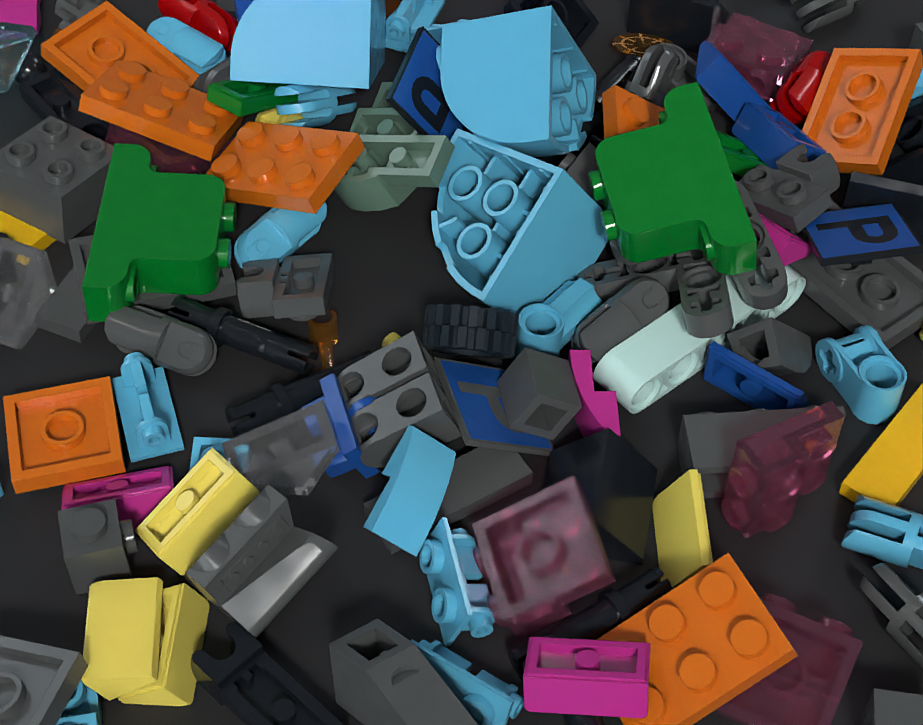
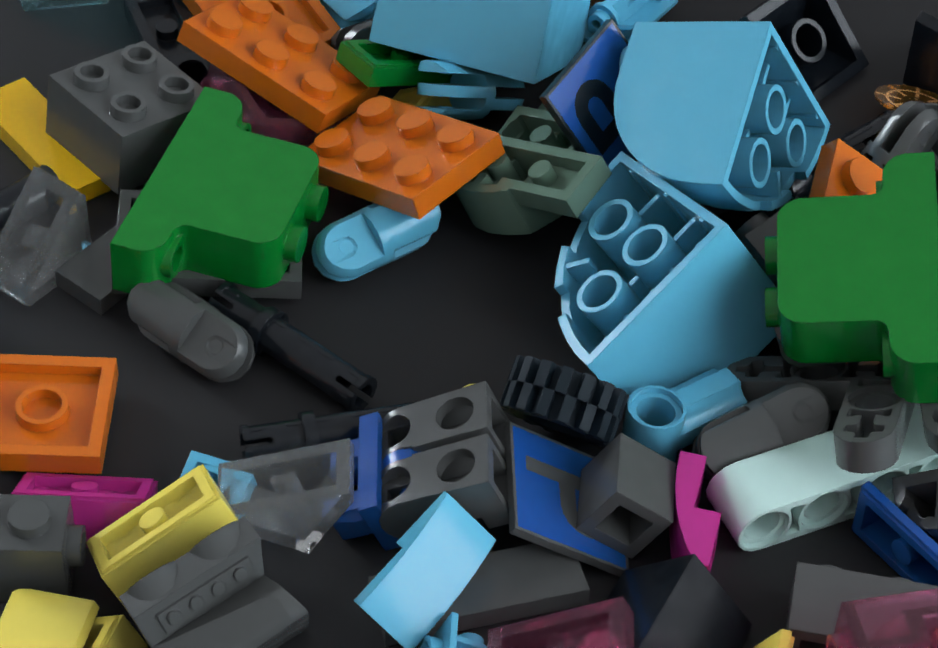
camera: 15 degrees right, 5 degrees down
(146, 409) = (148, 406): medium azure hinge -> none
(292, 291) = (364, 307): dark grey plate -> none
(325, 337) = (390, 370): clear orange hand -> none

